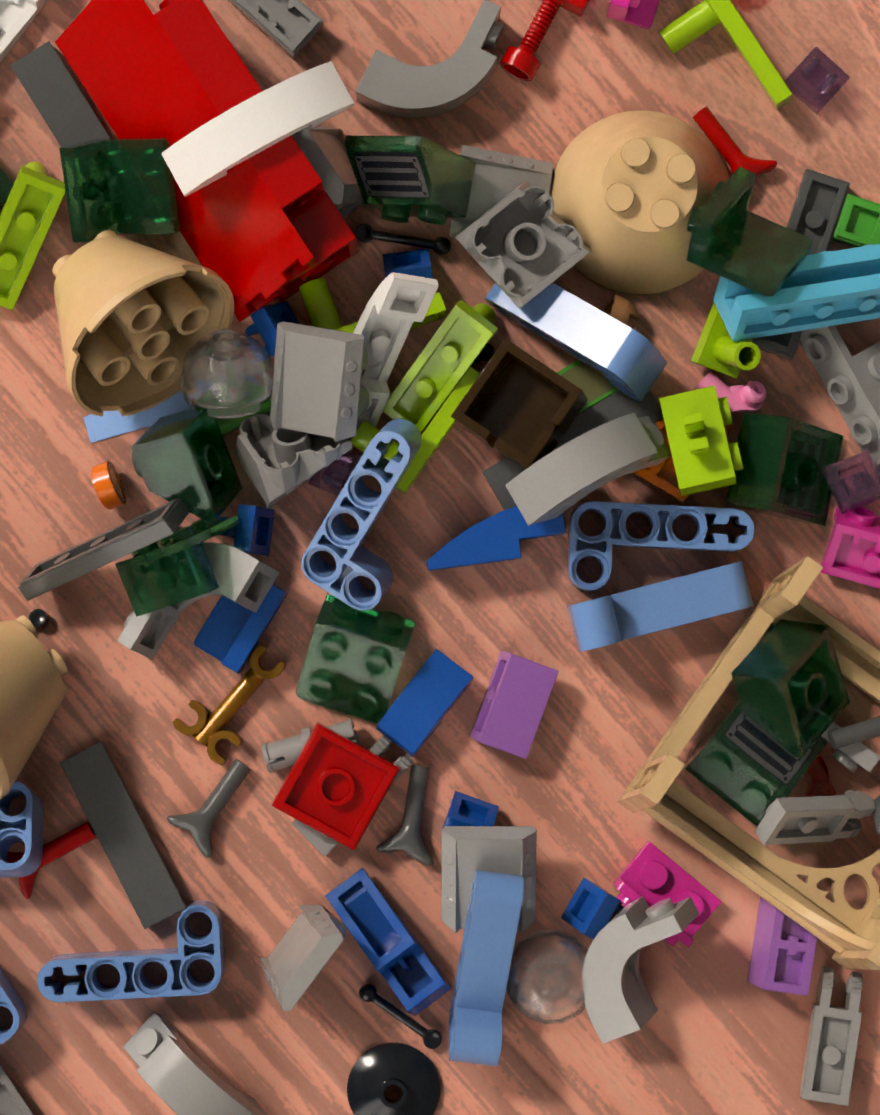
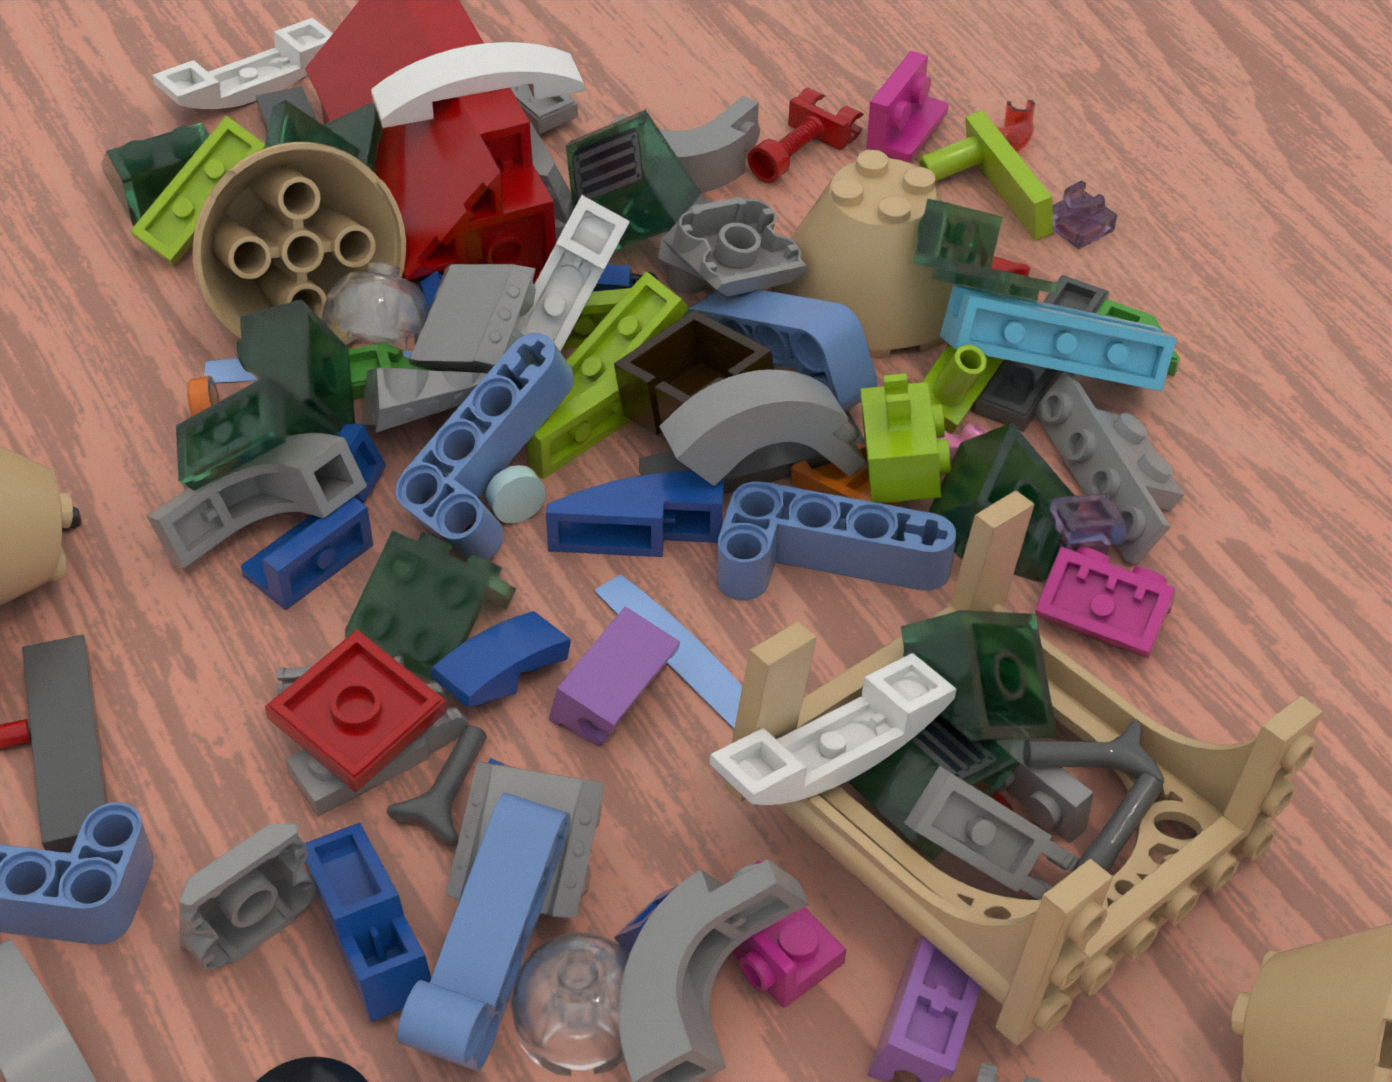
camera: 15 degrees right, 40 degrees down
(104, 548) = (154, 427): dark grey tile -> none
(201, 821) = (172, 743): dark grey piece -> none
(209, 729) = (232, 653): pearl gold bar -> none
(392, 533) = (515, 494): none -> light aqua tile
(431, 1037) = (384, 1059): black hinge -> none
(553, 652) = (691, 660): none -> light blue sticker
(660, 606) = (839, 607): medium blue beam -> none
(699, 784) = (840, 744): none -> white slope

